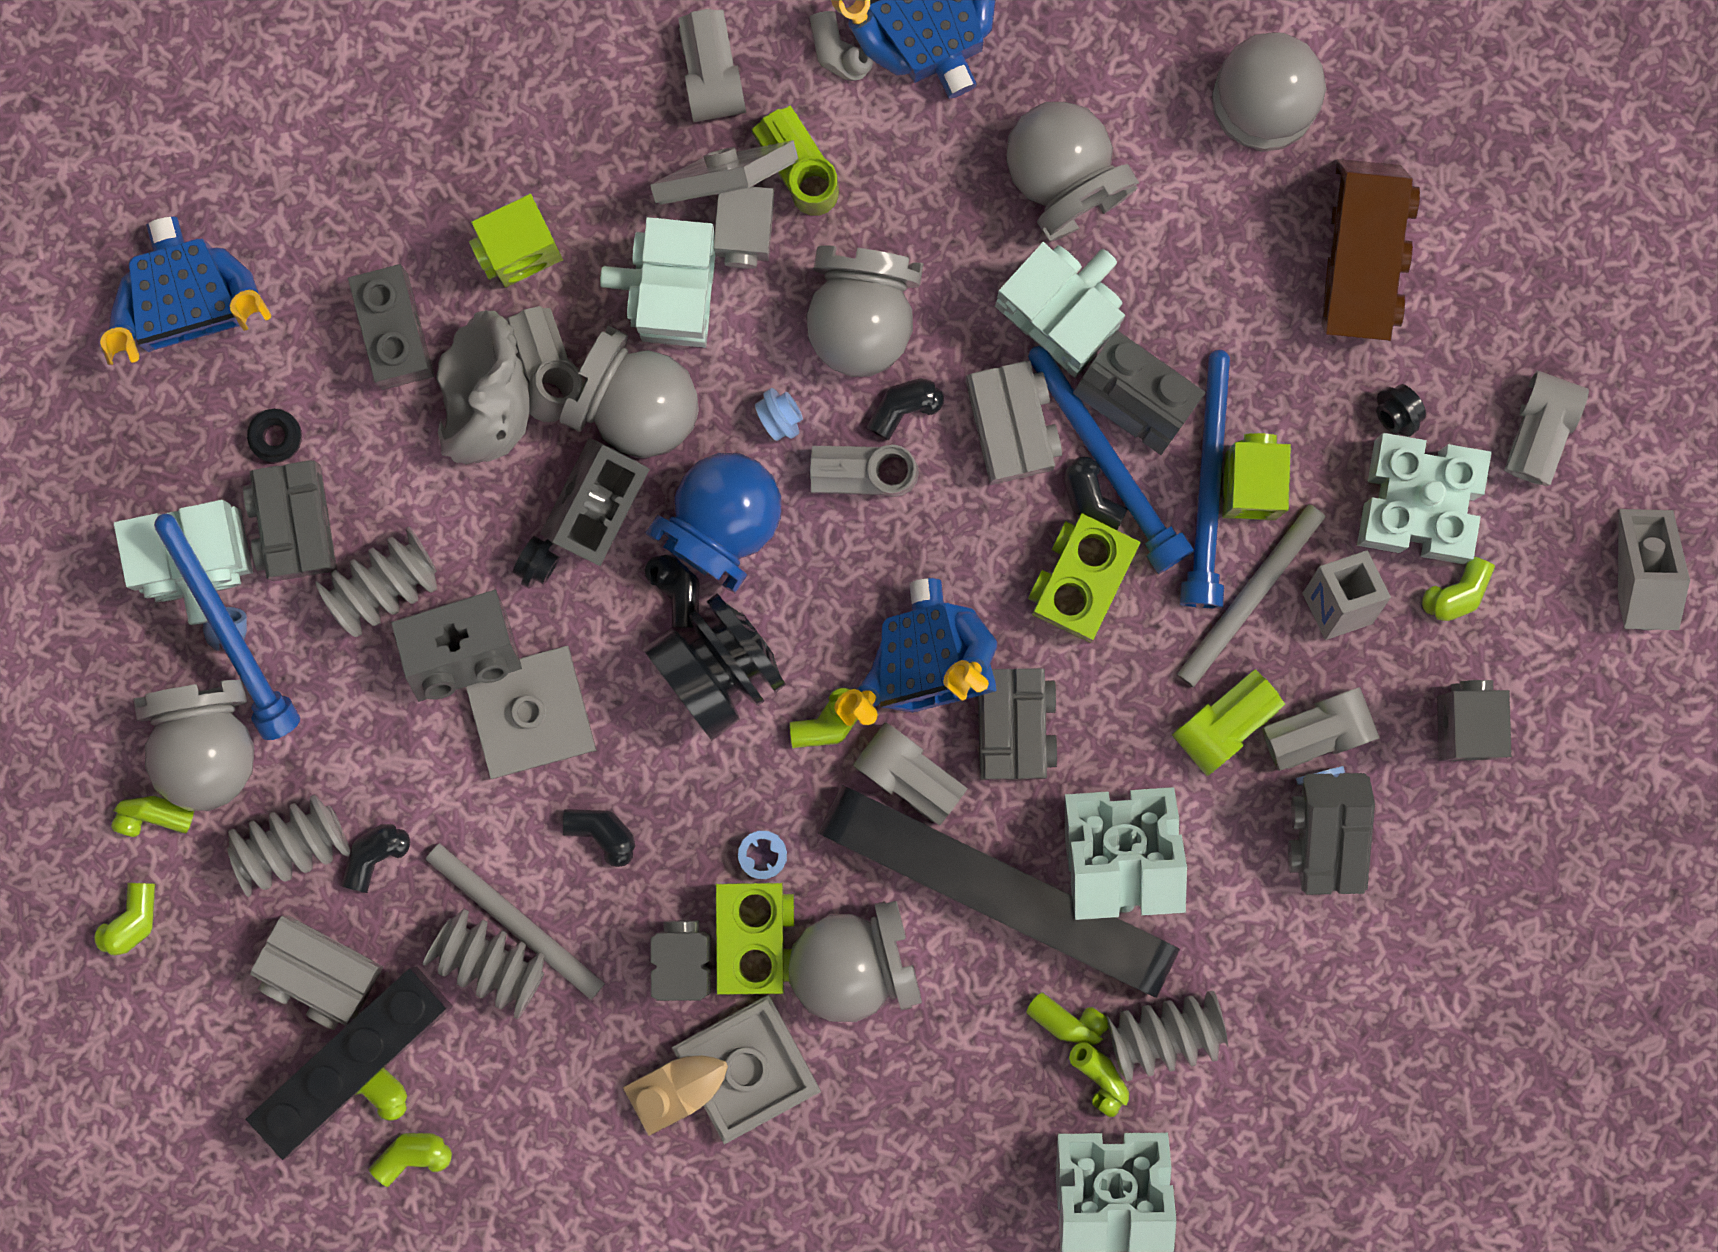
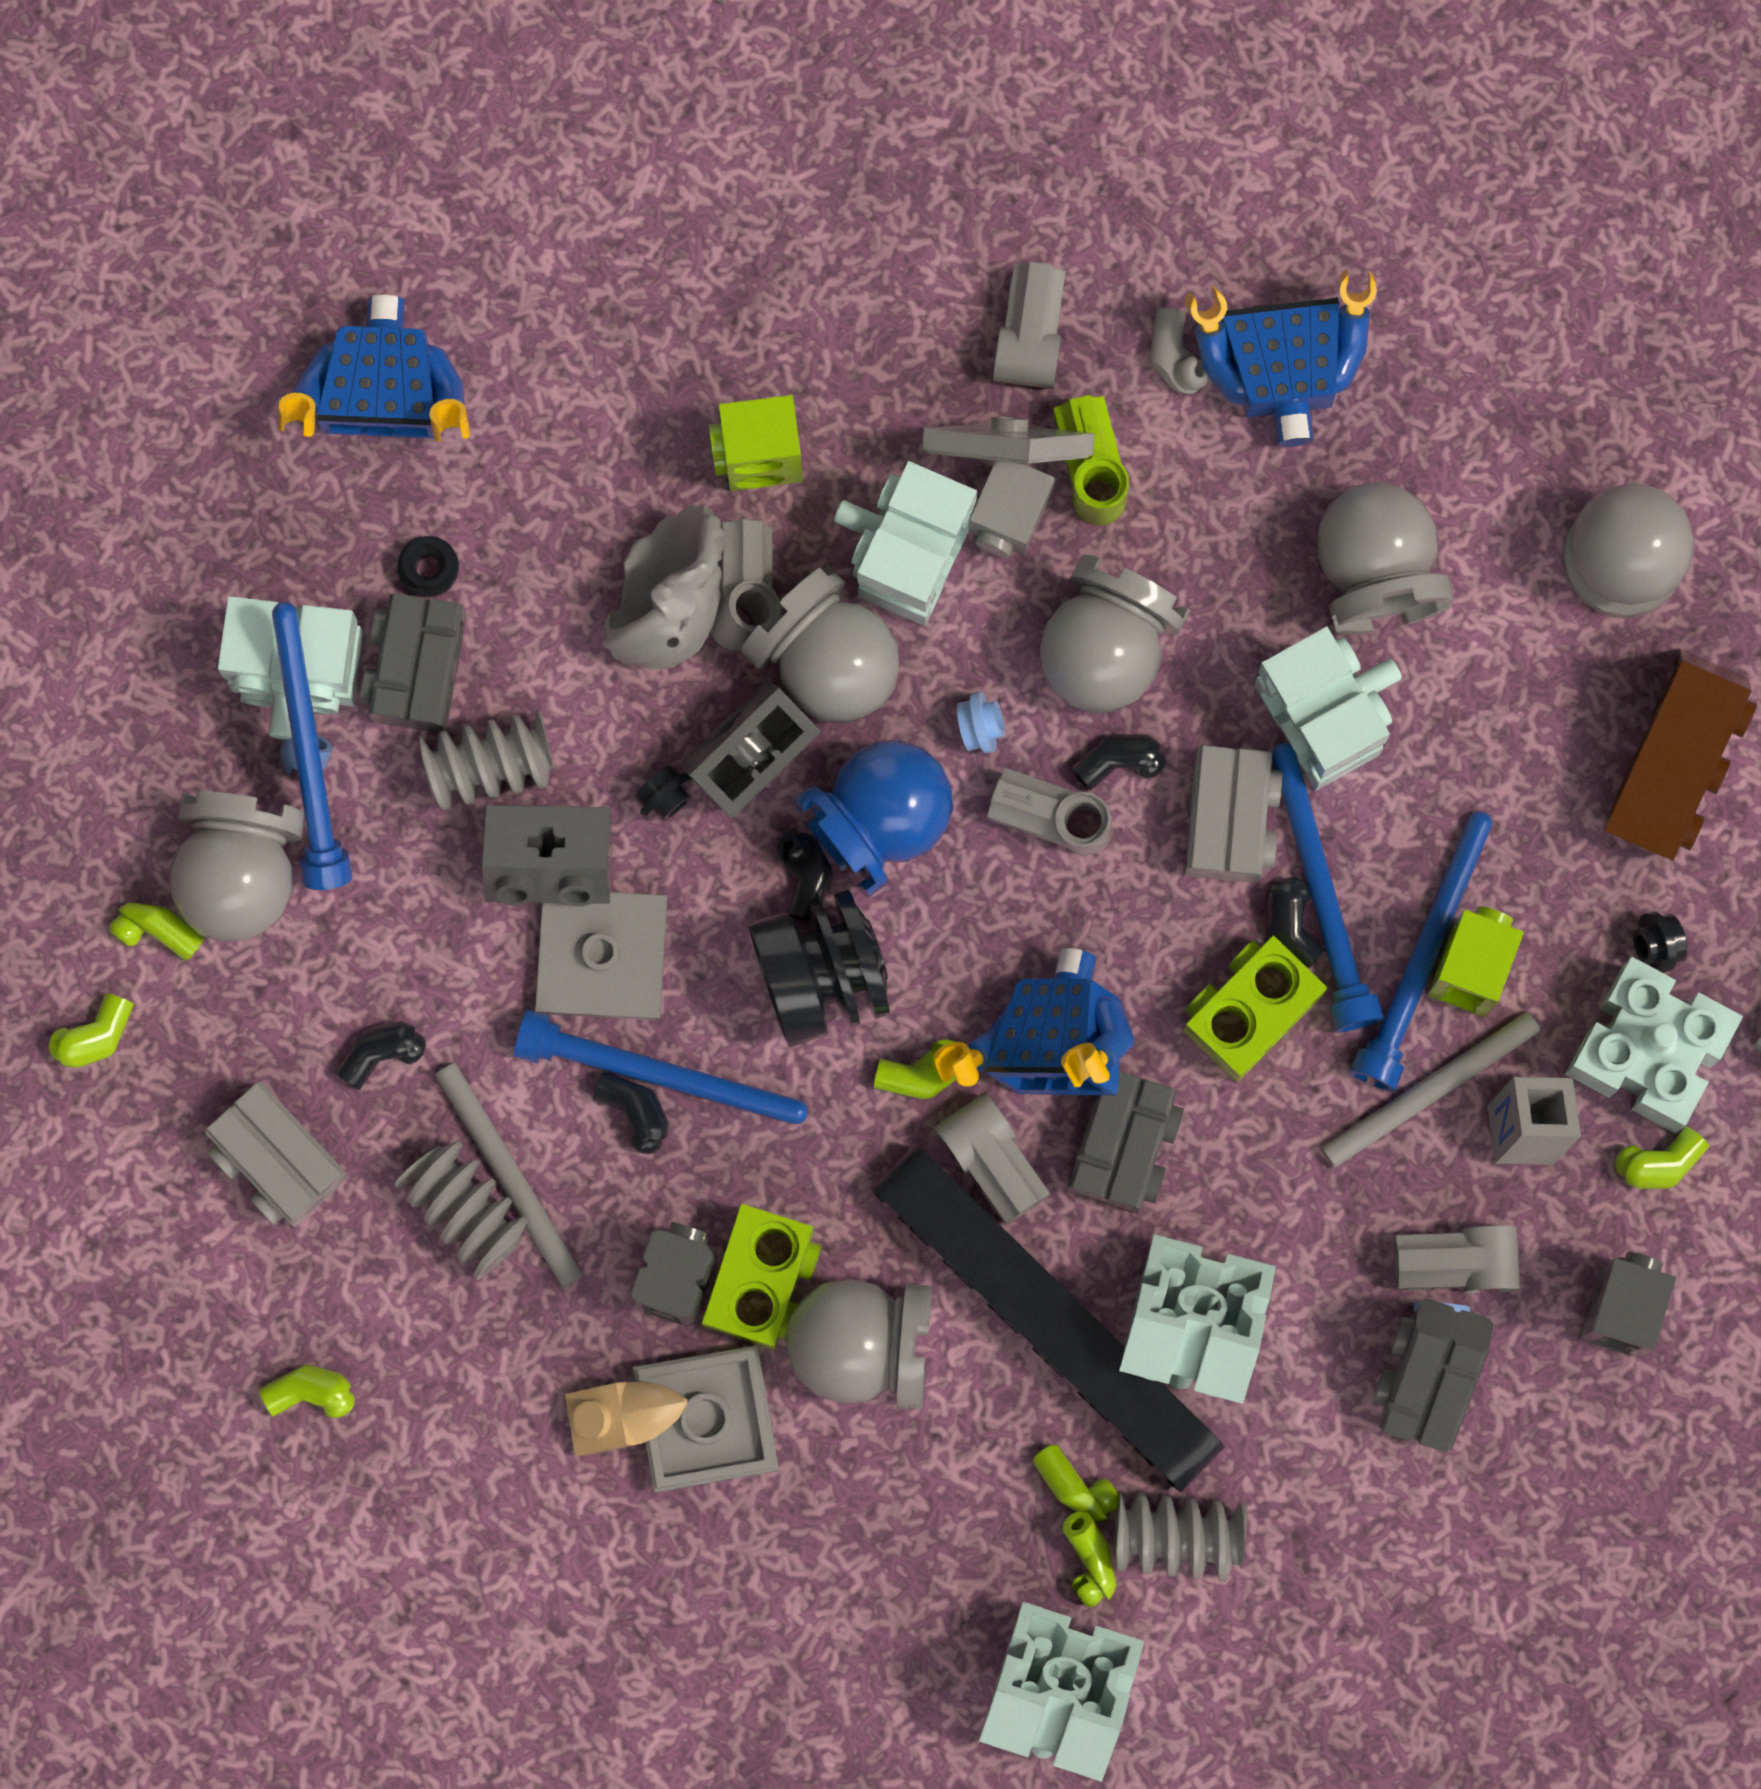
camera: 20 degrees right, 5 degrees down
(286, 844) = (290, 1007): light grey piece -> none
(349, 1062) = (278, 1263): black arch -> none
(387, 1095) = (297, 1300): lime arm -> none
(391, 327) = (593, 491): dark grey brick -> none
(505, 799) = (544, 1039): none -> blue piece
(748, 863) = (783, 1196): light blue bush -> none
(1138, 392) = (1379, 827): dark grey brick -> none
(1219, 729) = (1349, 1221): lime piece -> none

